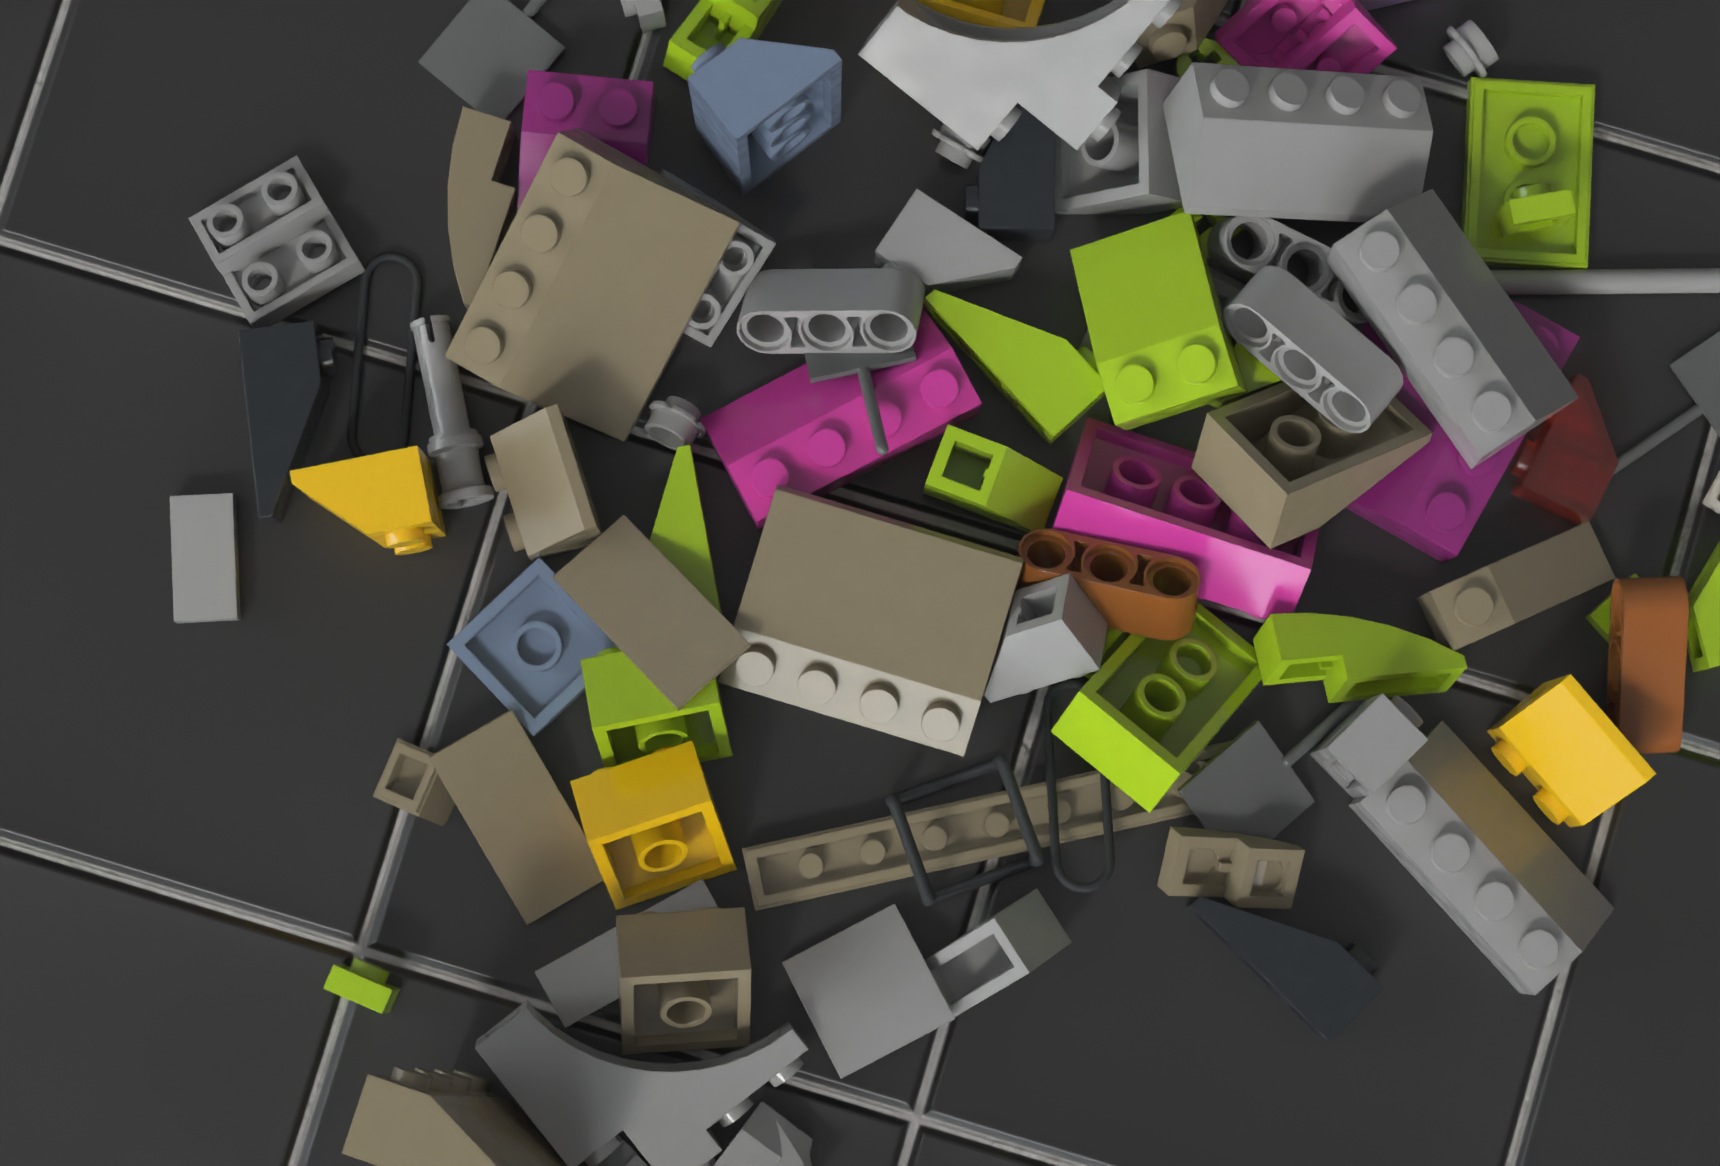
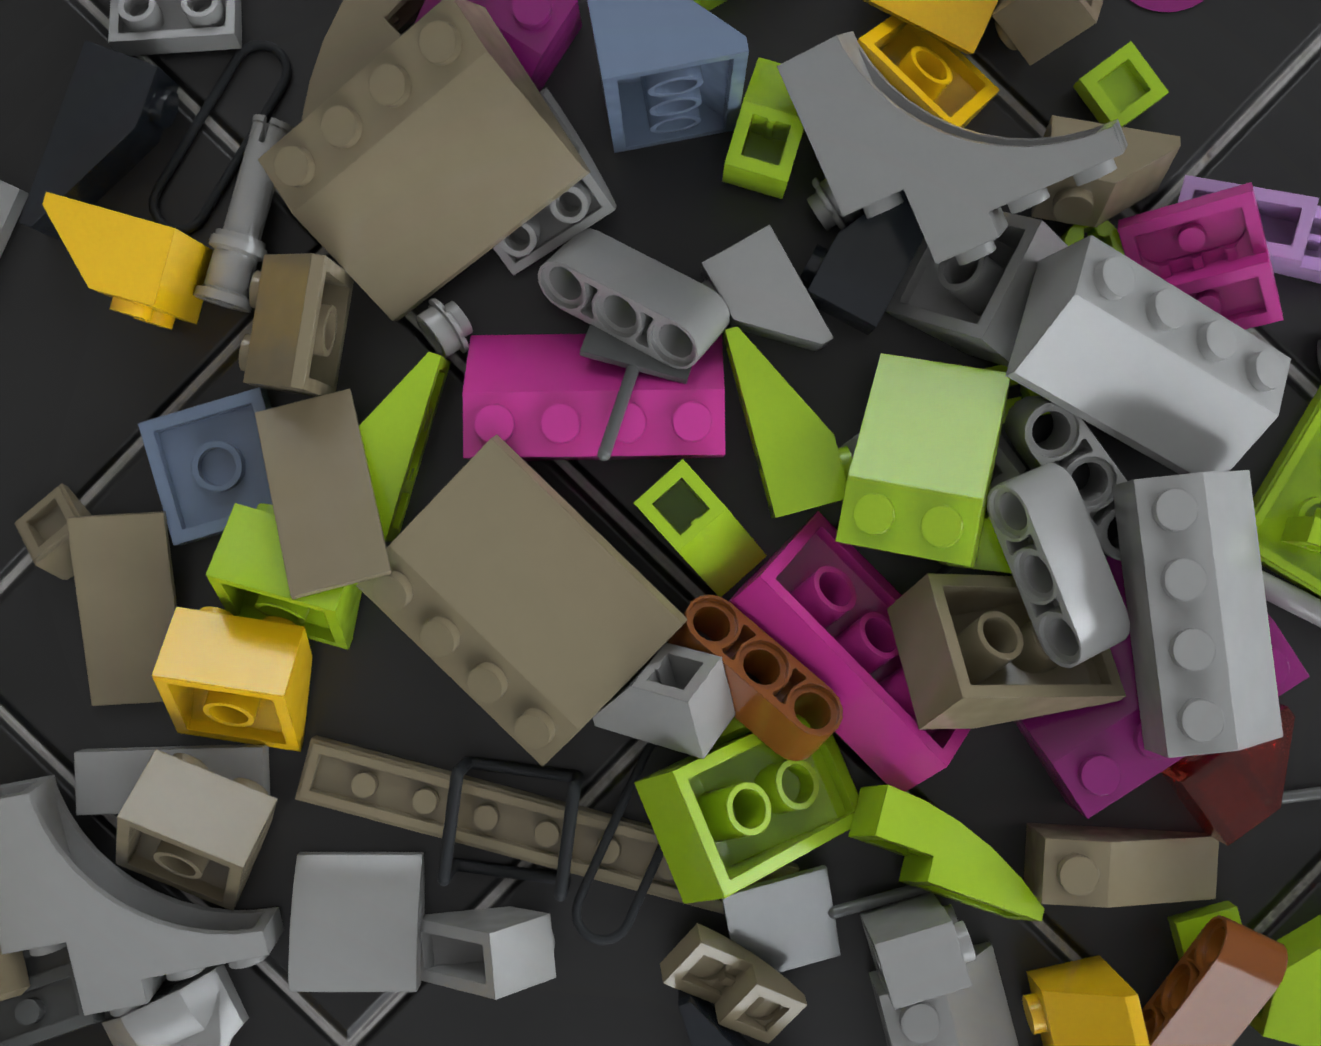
camera: 30 degrees right, 5 degrees up
(873, 115) = (764, 135): none -> lime slope

